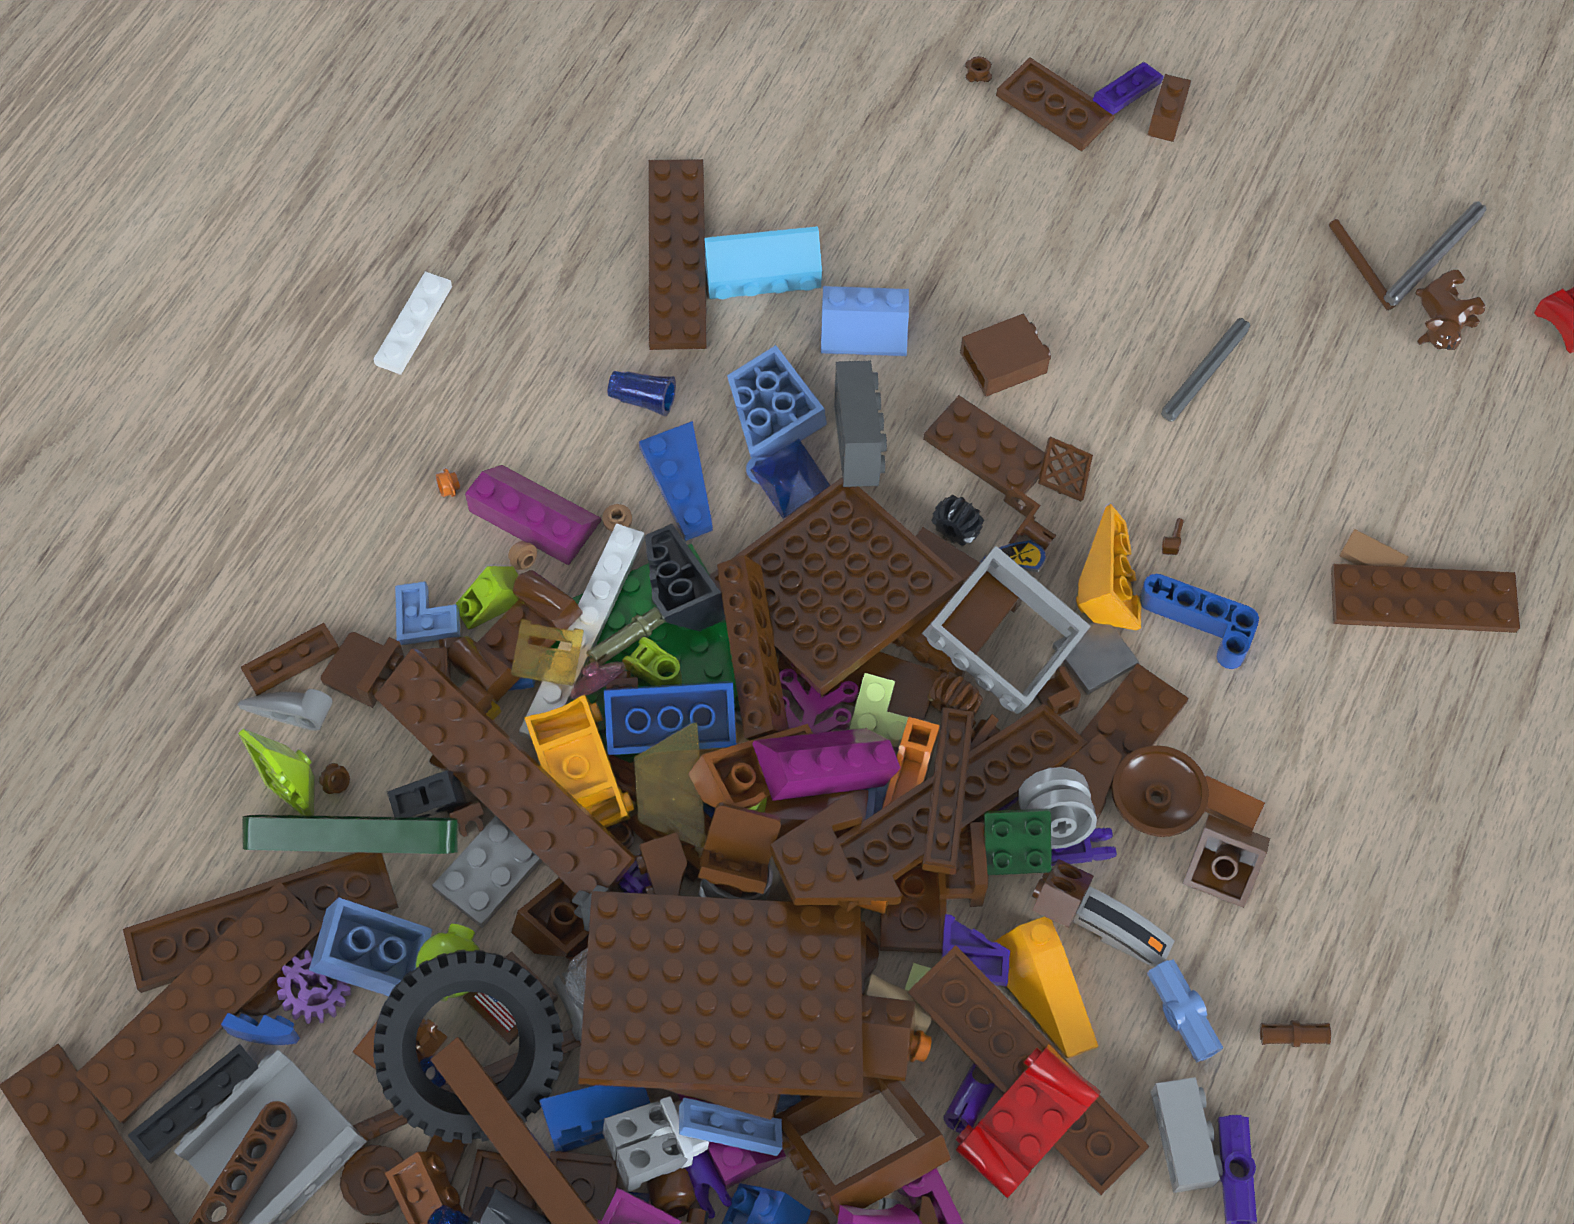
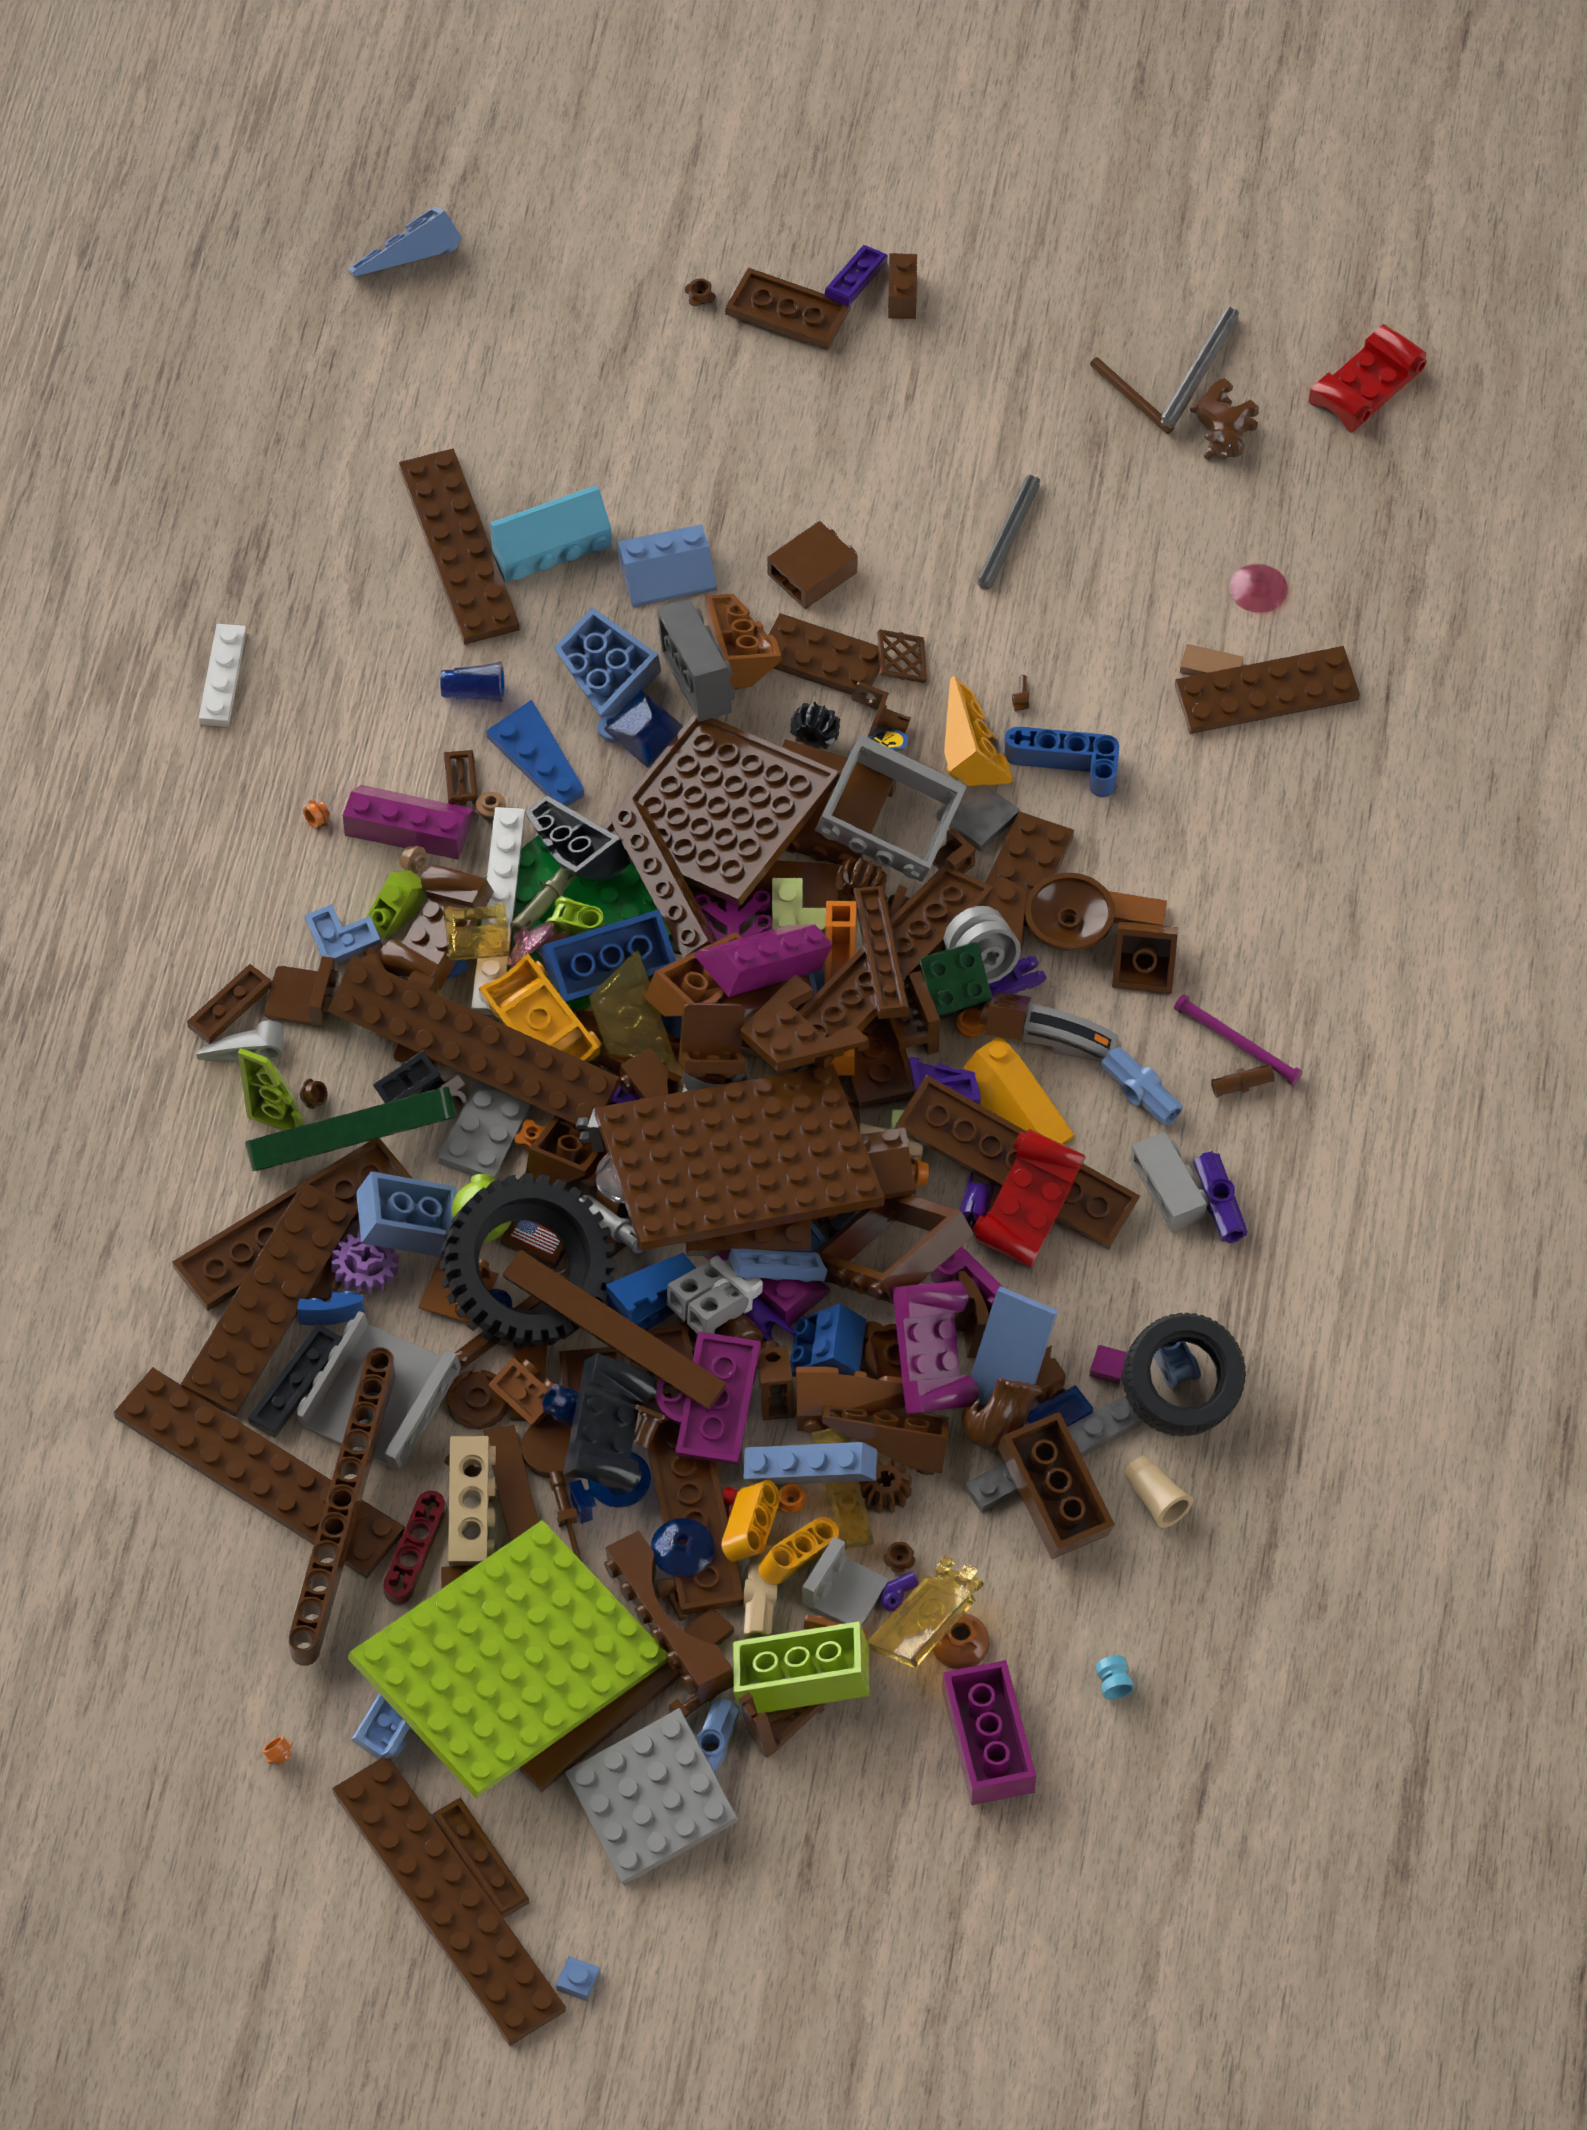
camera: 15 degrees left, 5 degrees down
(535, 878) = (523, 1138): none -> orange plate
(595, 503) = (462, 797): none -> reddish brown tile
(911, 414) = (741, 640): none -> dark orange wedge
(1022, 886) = (969, 1023): none -> orange plate
(1302, 984) = (1183, 1004): none -> magenta bar
(1437, 497) = (1258, 596): none -> clear pink dish

